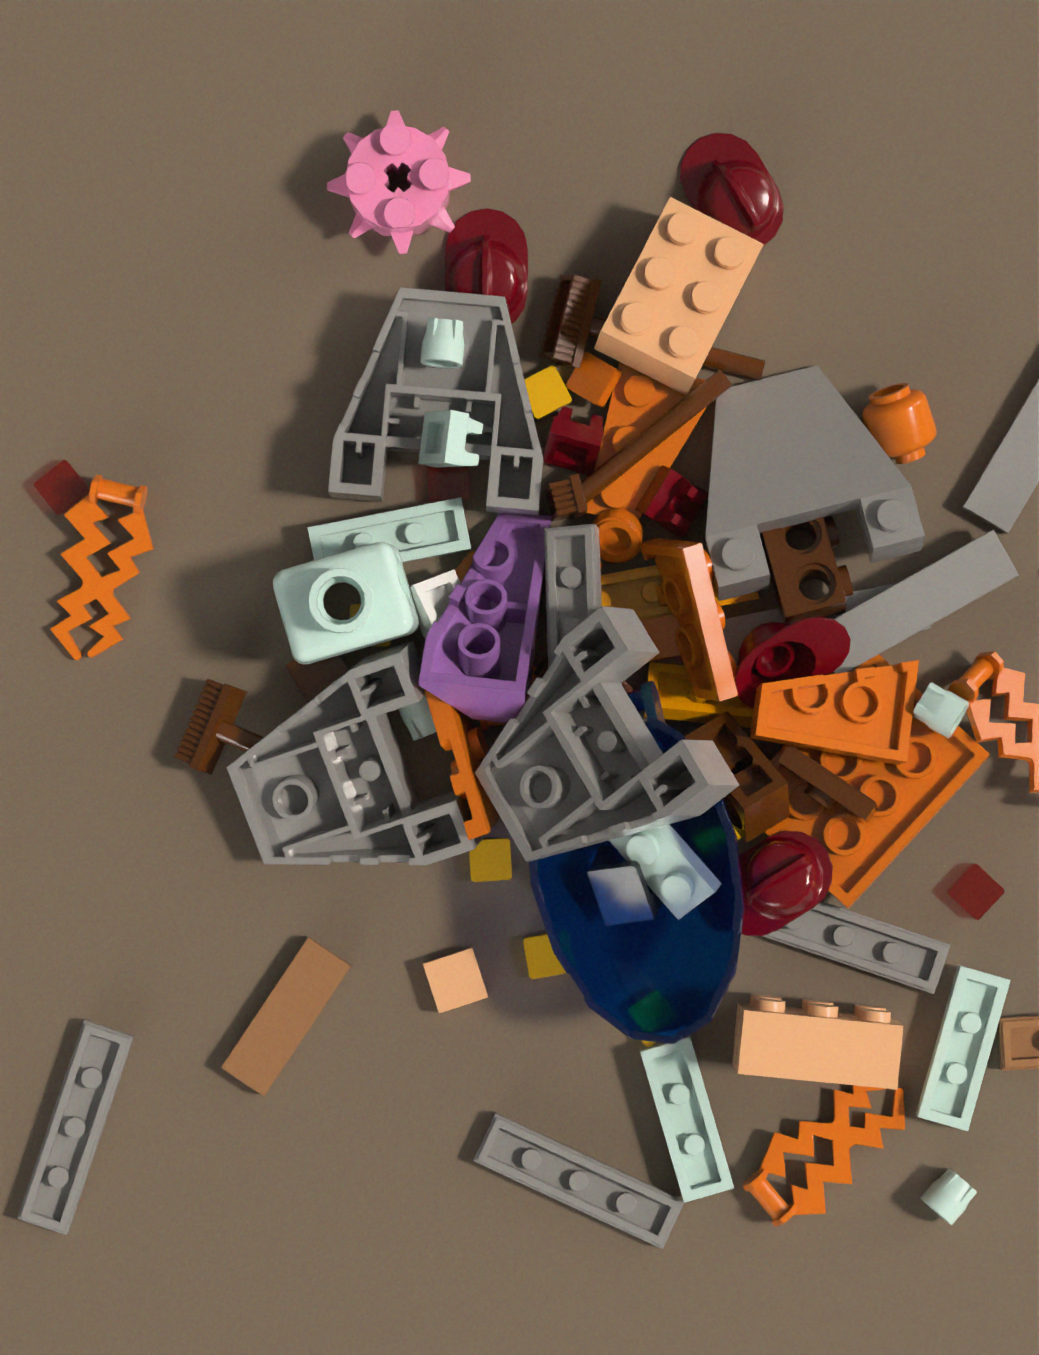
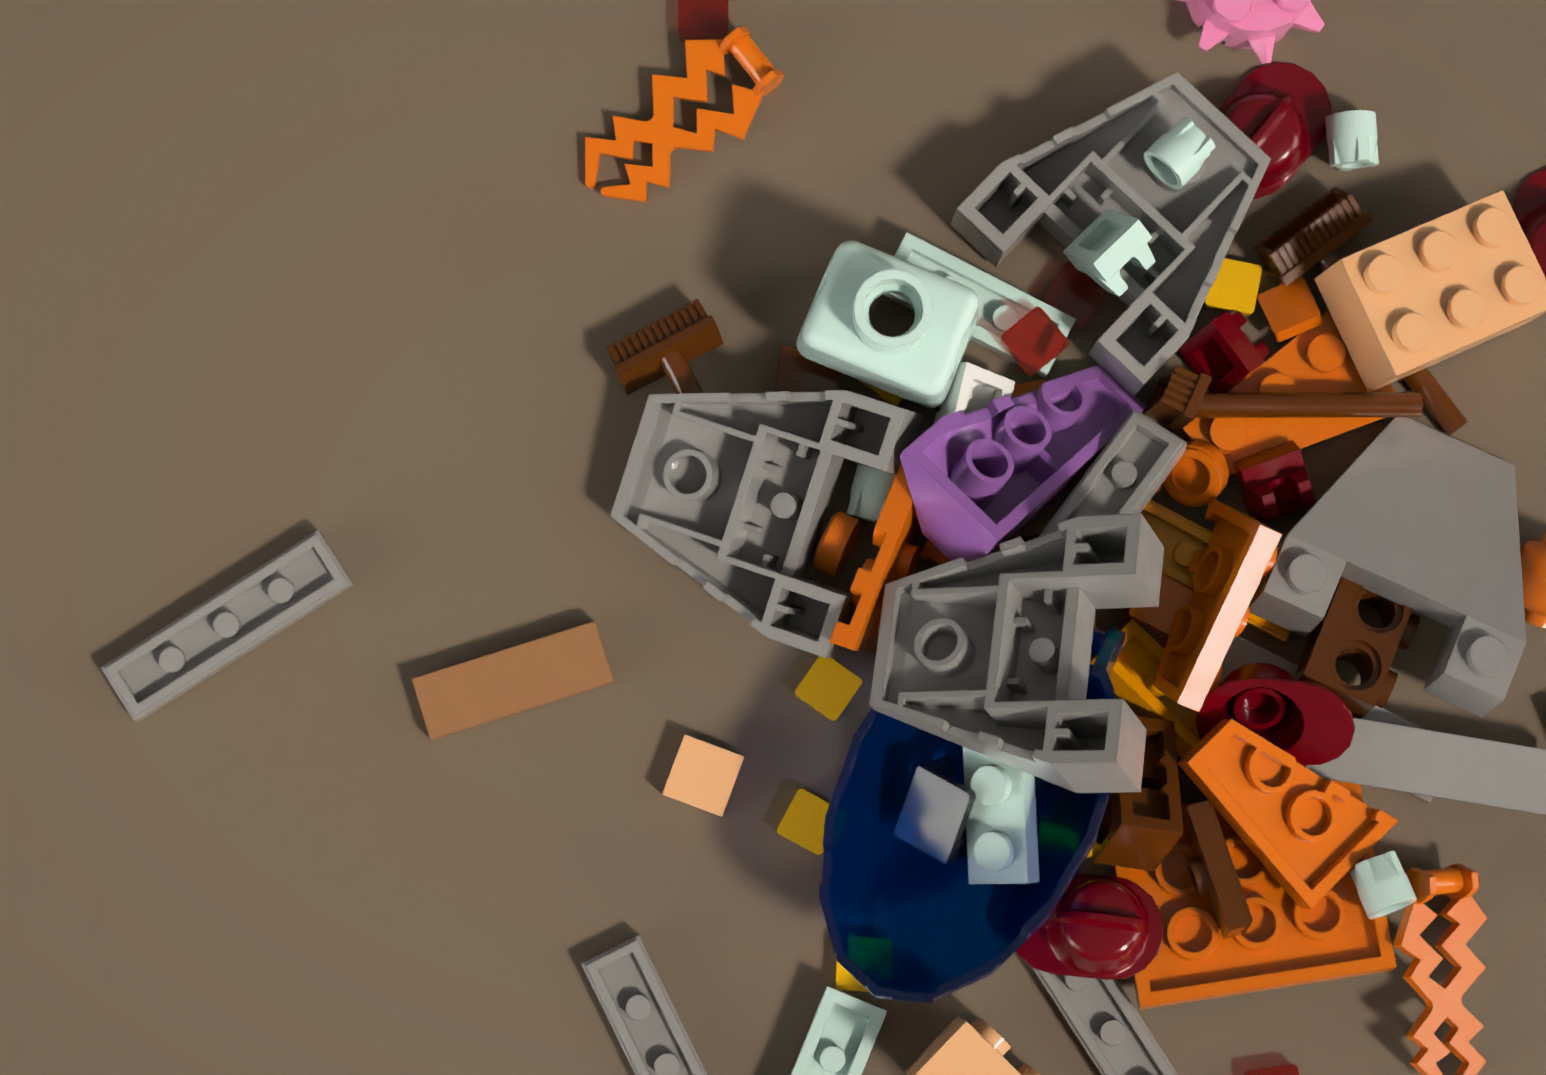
camera: 30 degrees right, 5 degrees down
(423, 765) = (837, 543): none -> orange tile
(446, 534) = (1034, 341): none -> clear red piece
(547, 235) = (1352, 139): none -> light aqua hose

